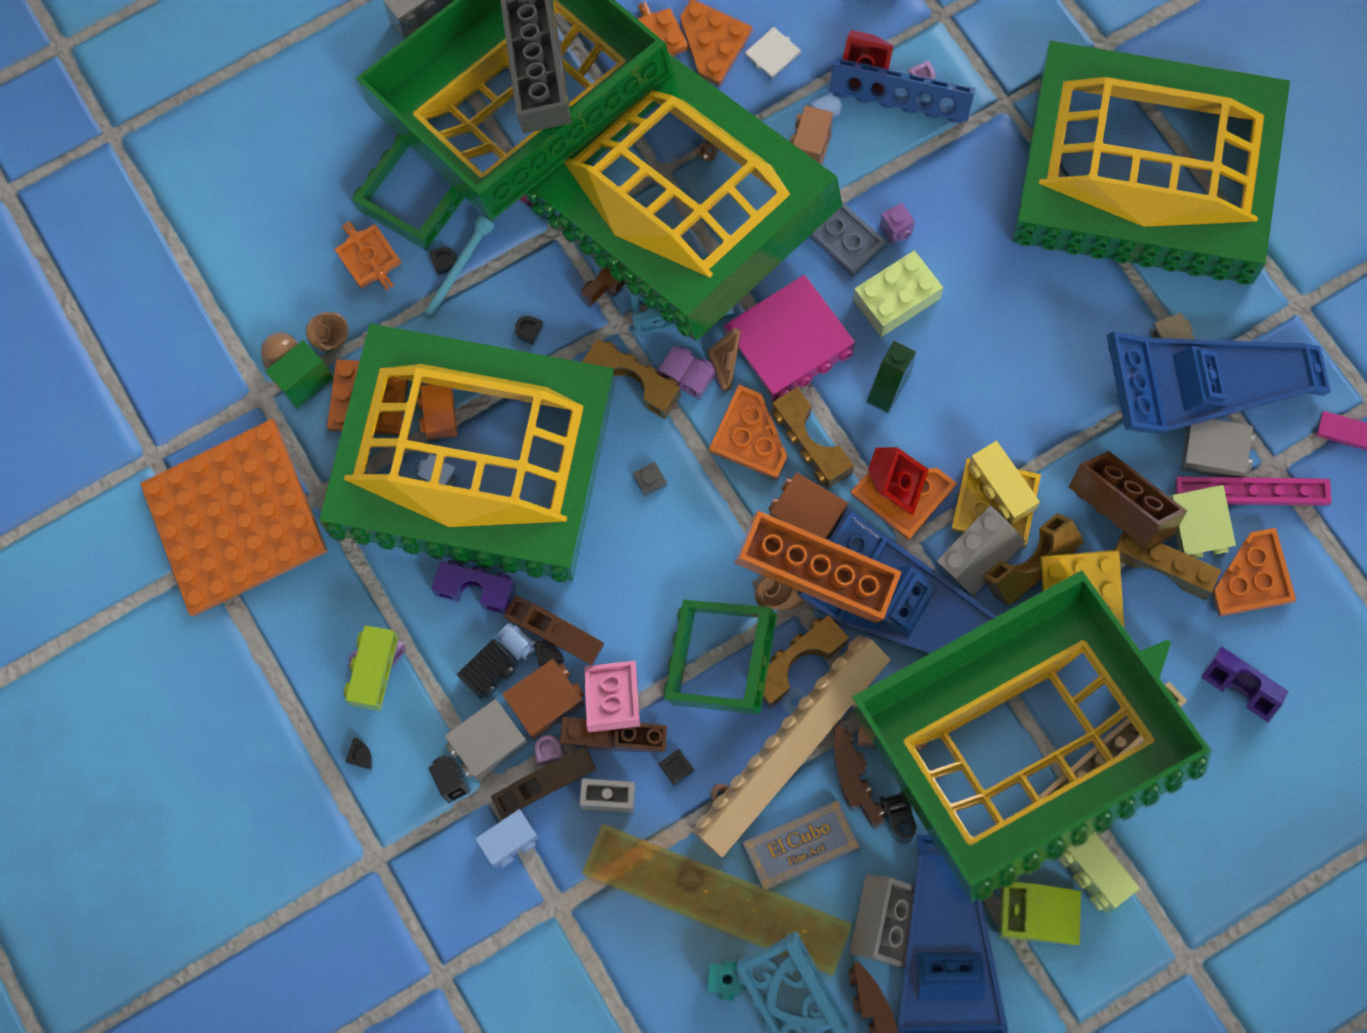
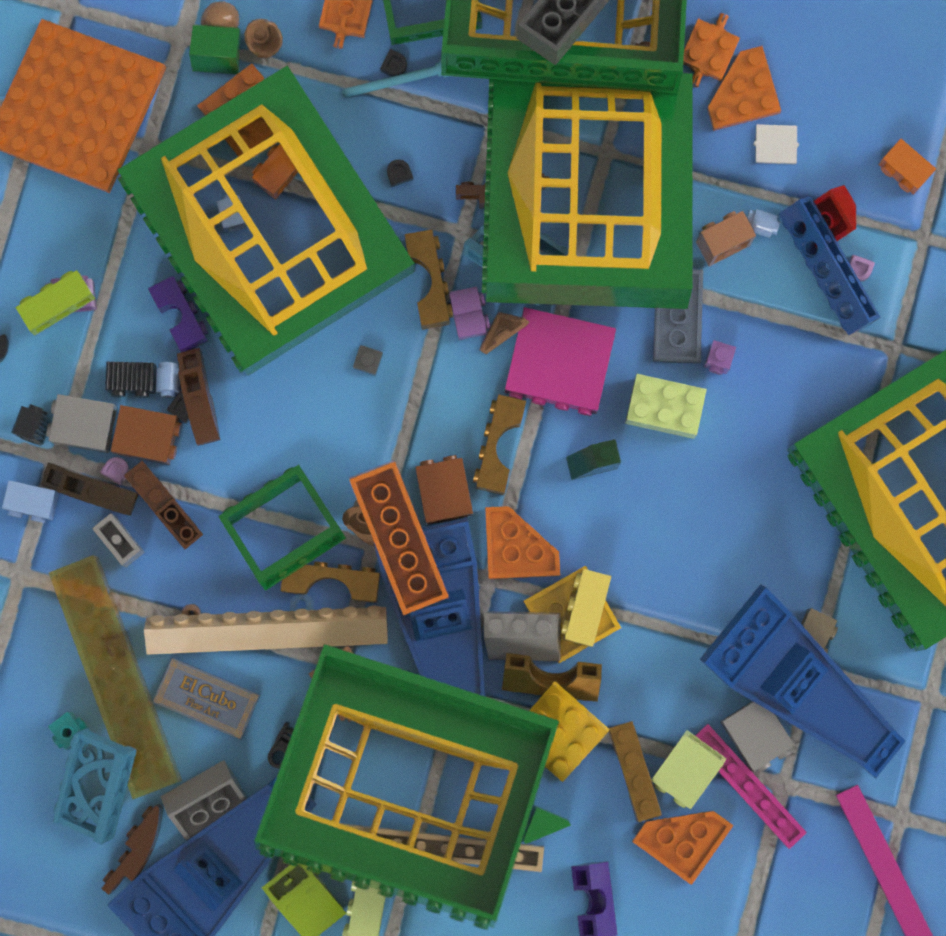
camera: 40 degrees right, 10 degrees up
(611, 696) = (187, 479): bright pink plate -> none
(676, 767) = (183, 566): black tile -> none
(749, 435) = (462, 399): orange plate -> none
(849, 767) = (286, 683): reddish brown slope -> none
(898, 477) = (520, 532): red slope -> none
(1127, 499) = (652, 705): reddish brown brick -> none

